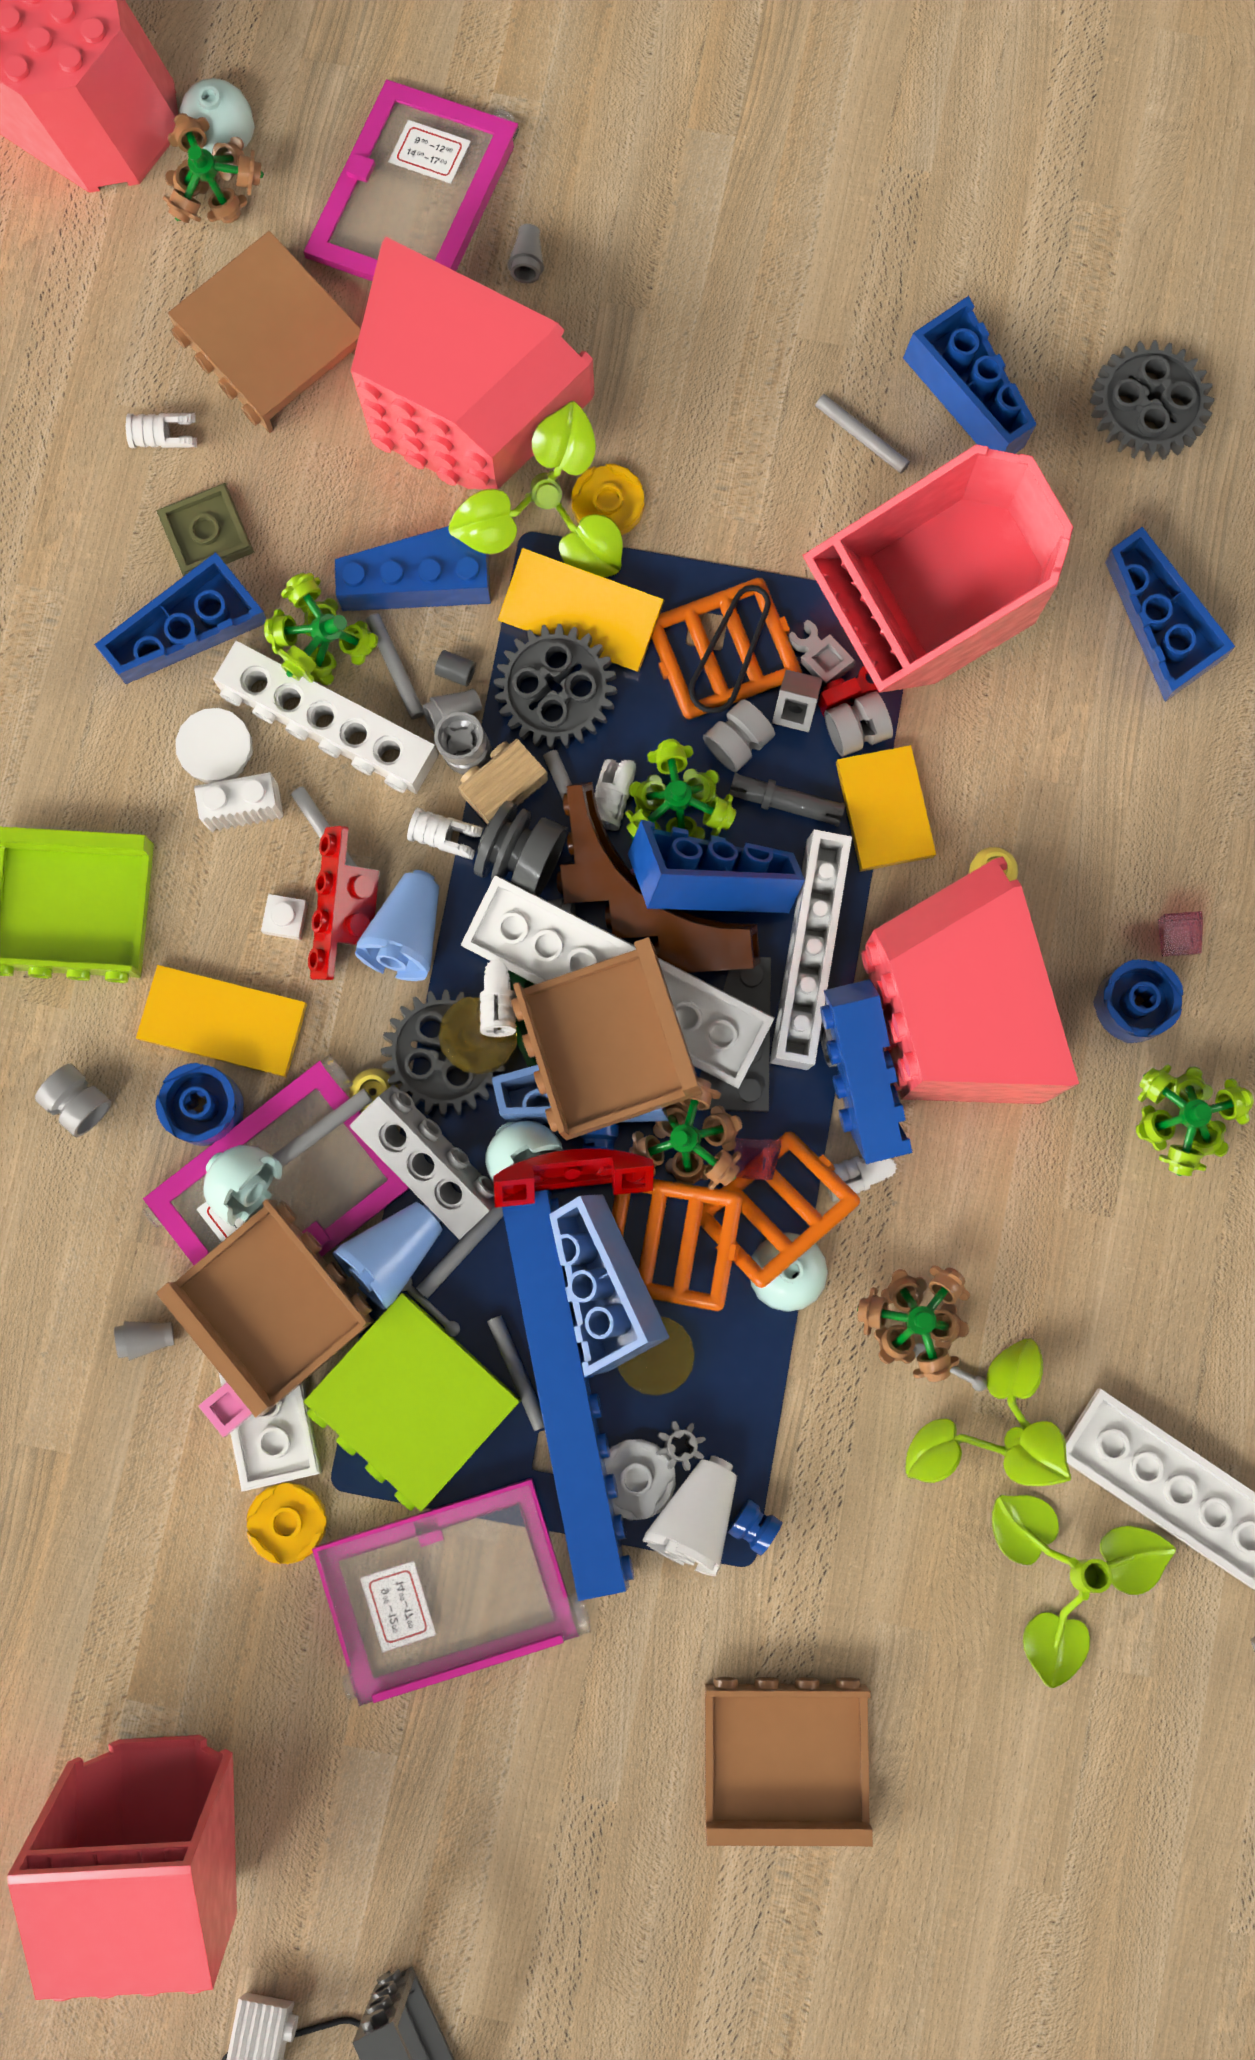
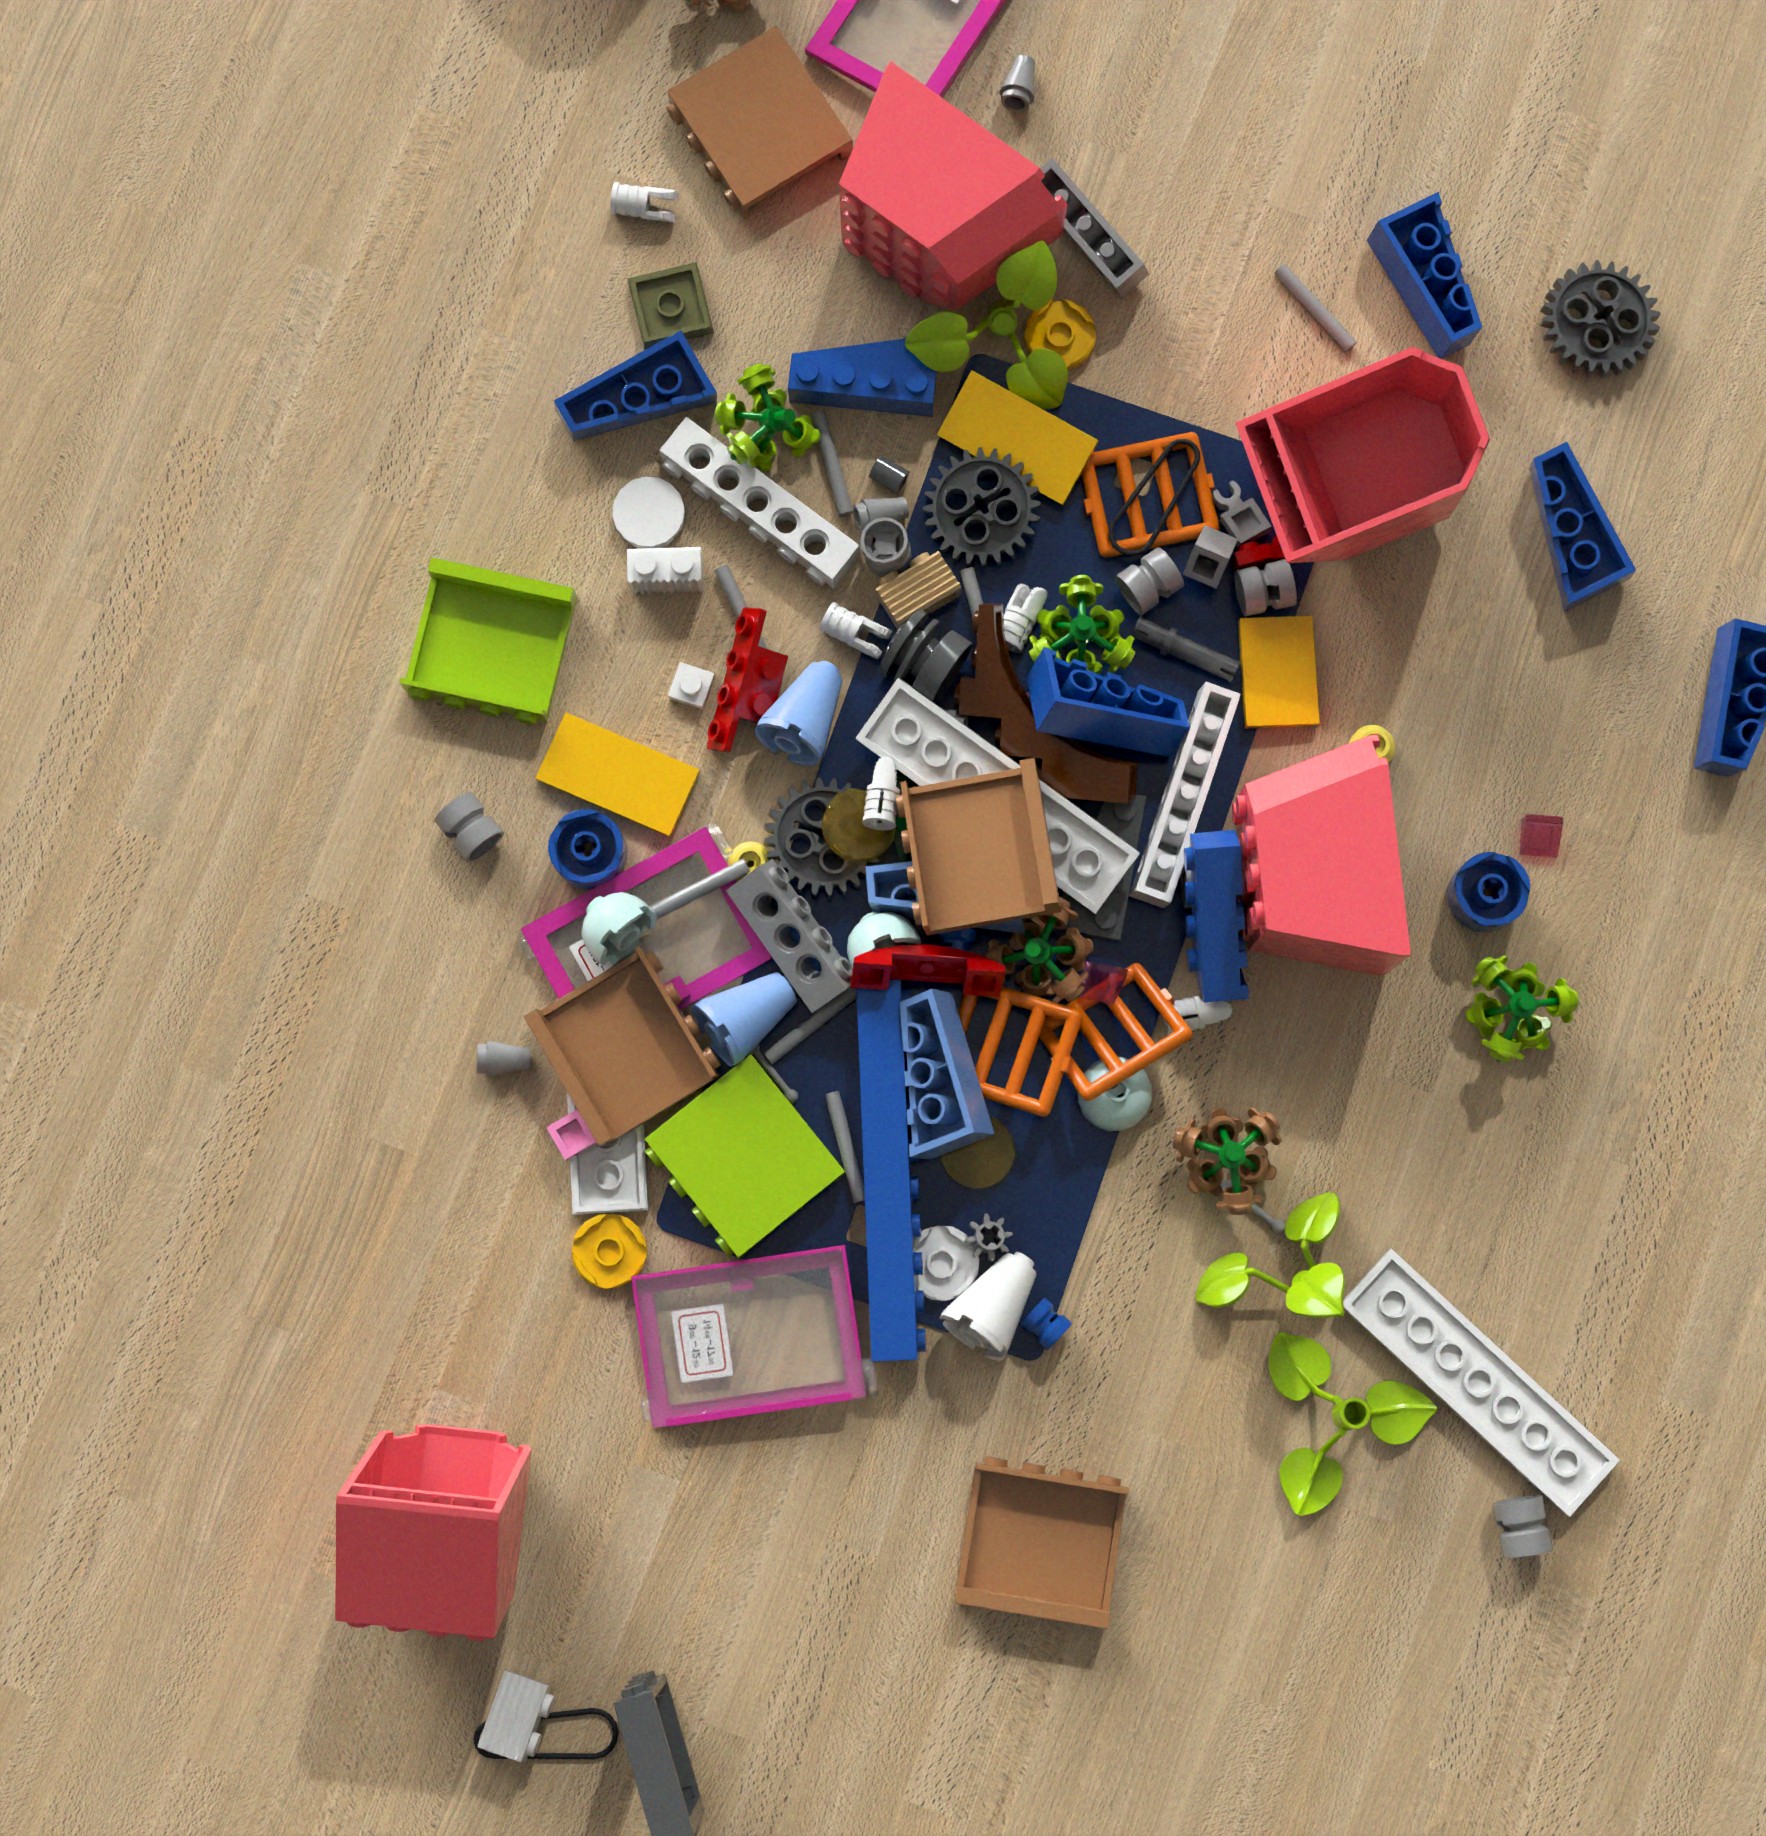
camera: 10 degrees right, 0 degrees up
(628, 393) = (1094, 234): none -> light grey brick

